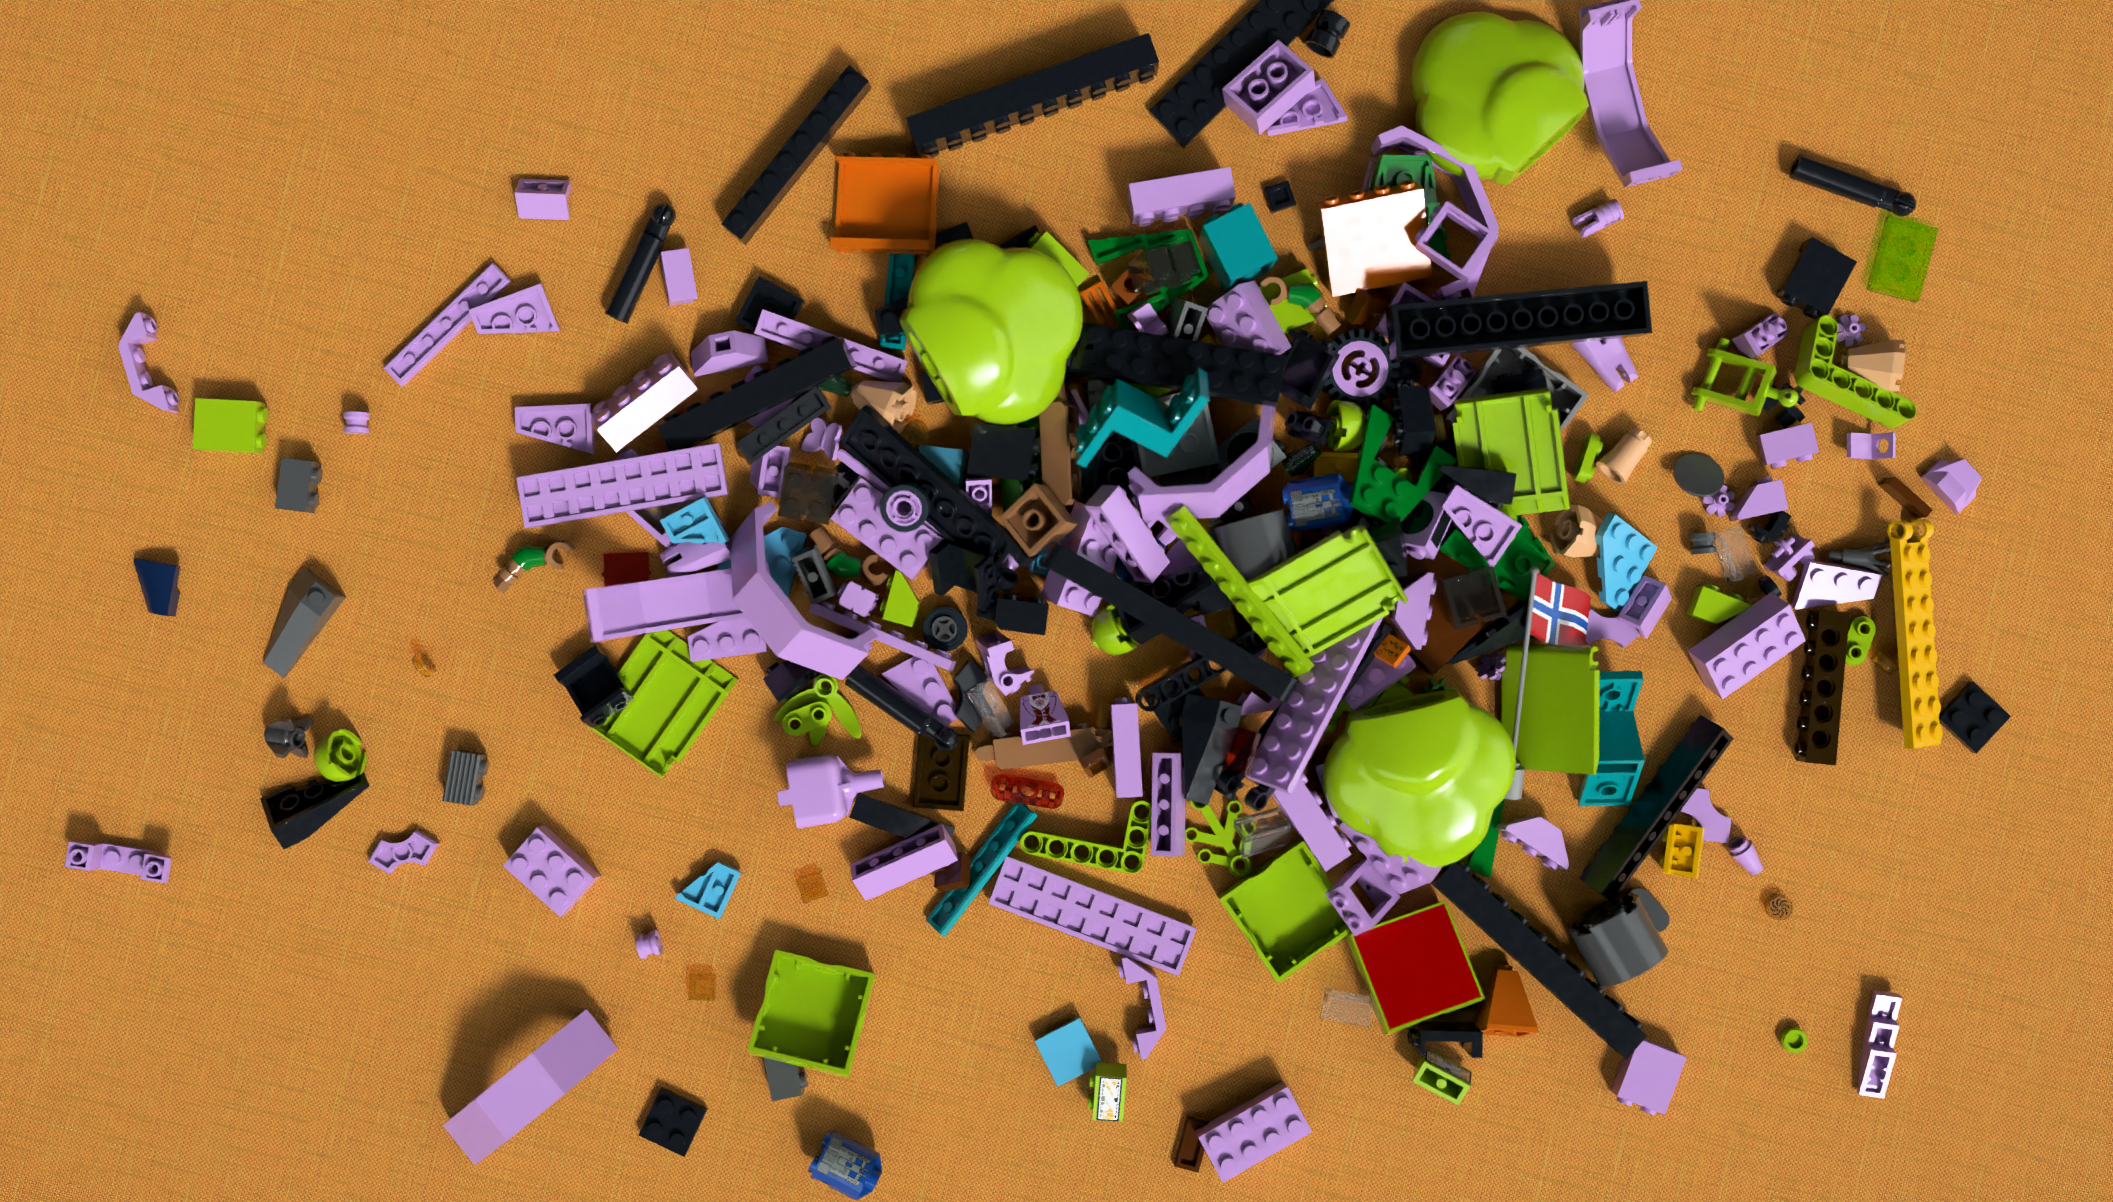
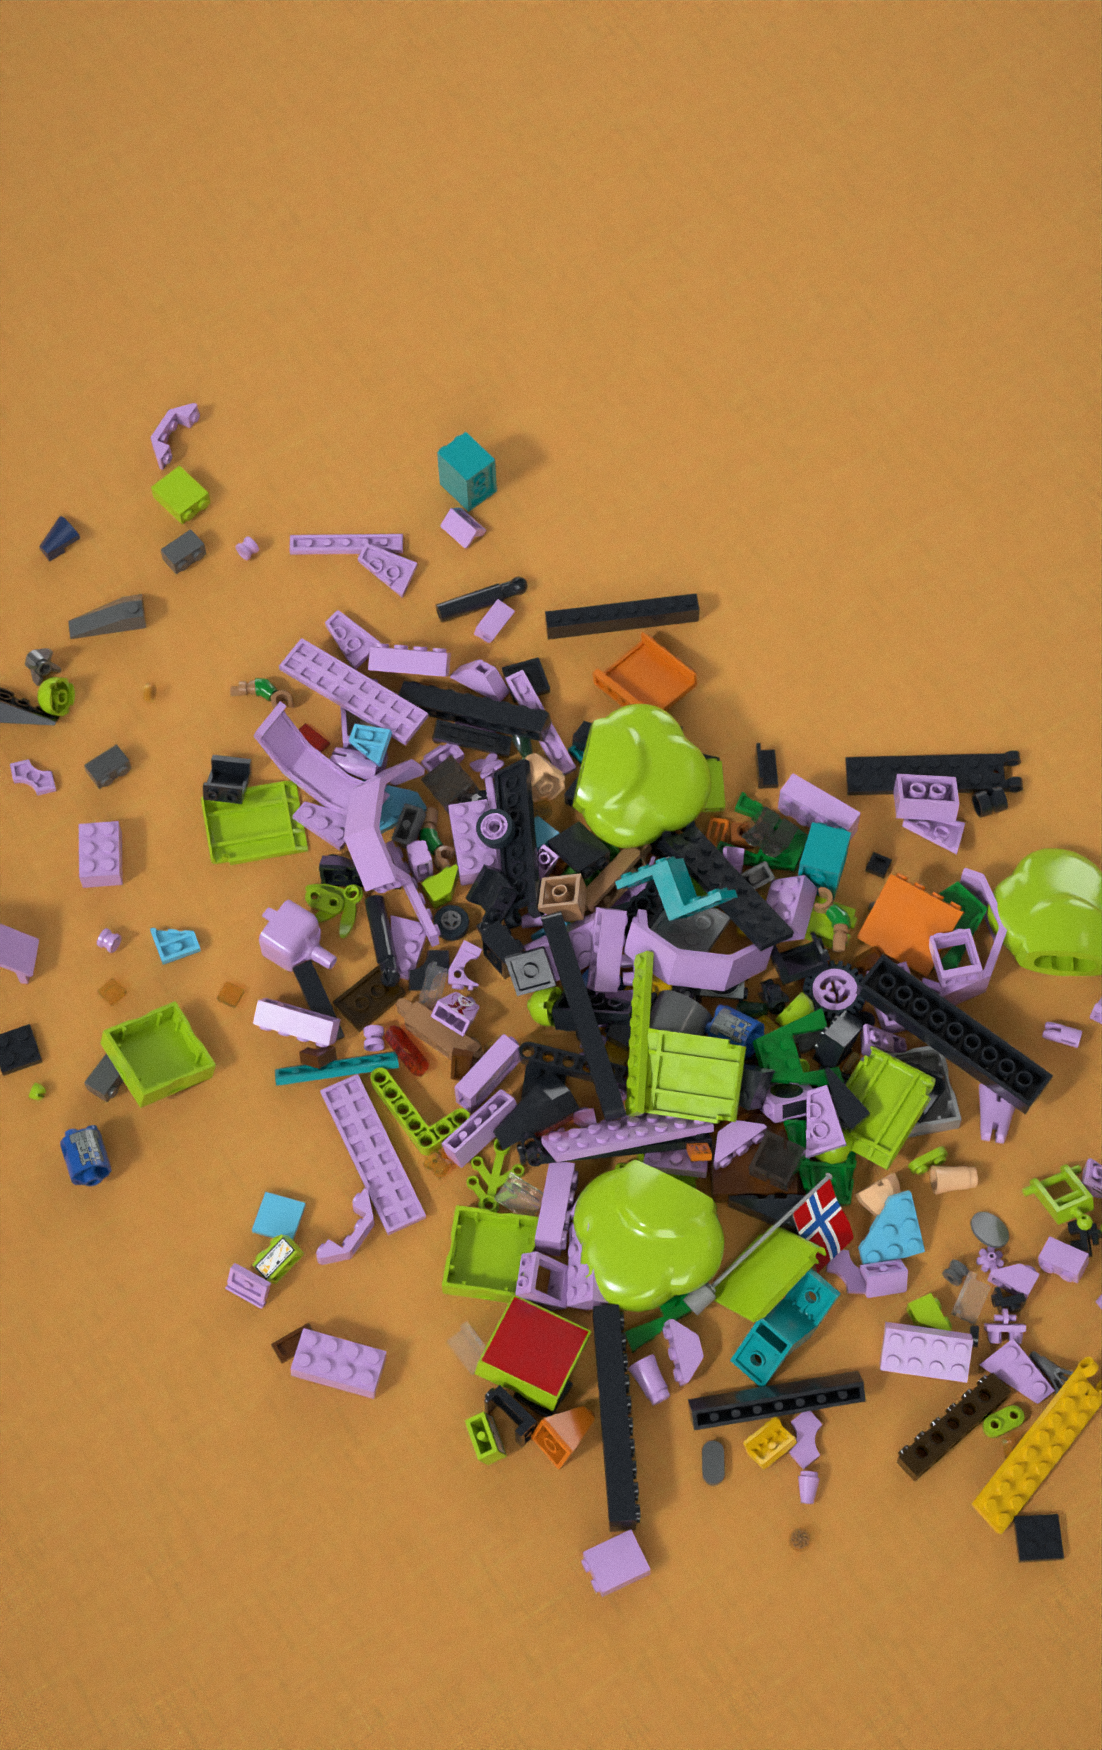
camera: 45 degrees right, 25 degrees down
(491, 137) = (467, 471): none -> teal container
(735, 1142) = (36, 1091): none -> lime hinge
(982, 803) = (373, 1038): none -> lavender wheel
(1034, 96) = (785, 692): black brick -> none
(1076, 619) = (530, 970): none -> plate
(1084, 191) = (766, 768): none -> black panel
(1115, 1136) = (248, 1285): none -> lavender plate
(1160, 871) = (437, 1164): none -> clear yellow wheel
(1492, 666) = (753, 1228): lavender plant -> none
(1530, 890) = (650, 1379): none -> lavender plant
(1618, 940) = (675, 1449): dark grey brick -> none
(1793, 1039) = (731, 1634): lime tile -> none
(1878, 1044) = (784, 1688): lavender slope -> none

